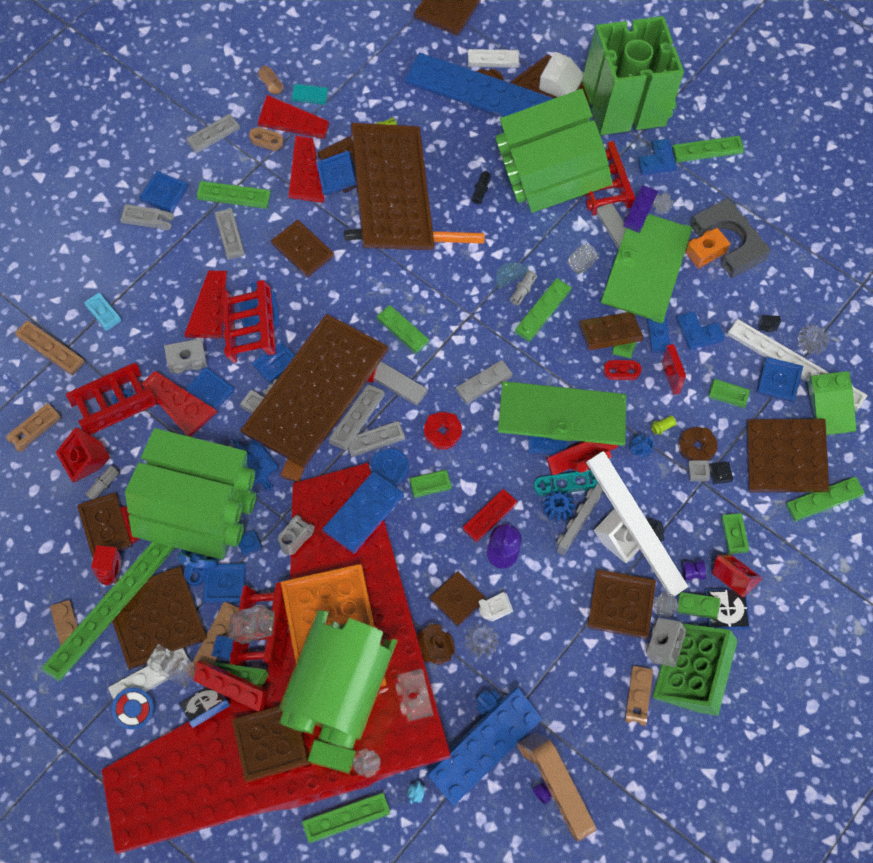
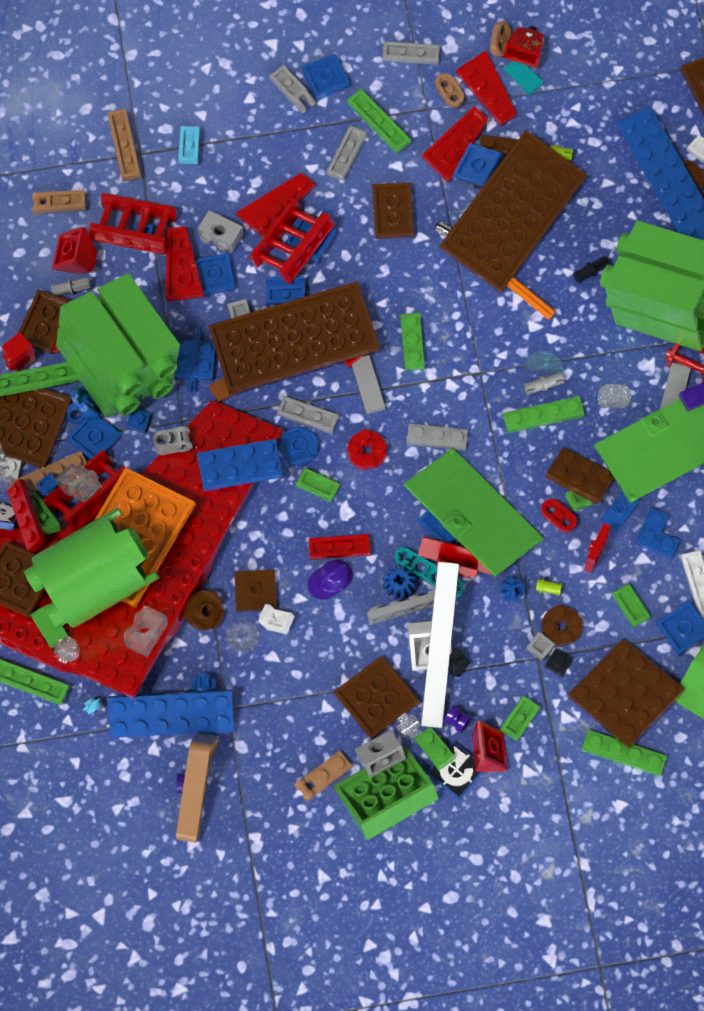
camera: 45 degrees right, 5 degrees up
(295, 71) = (524, 46): none -> red torso
(356, 417) = (307, 385): light grey plate -> none

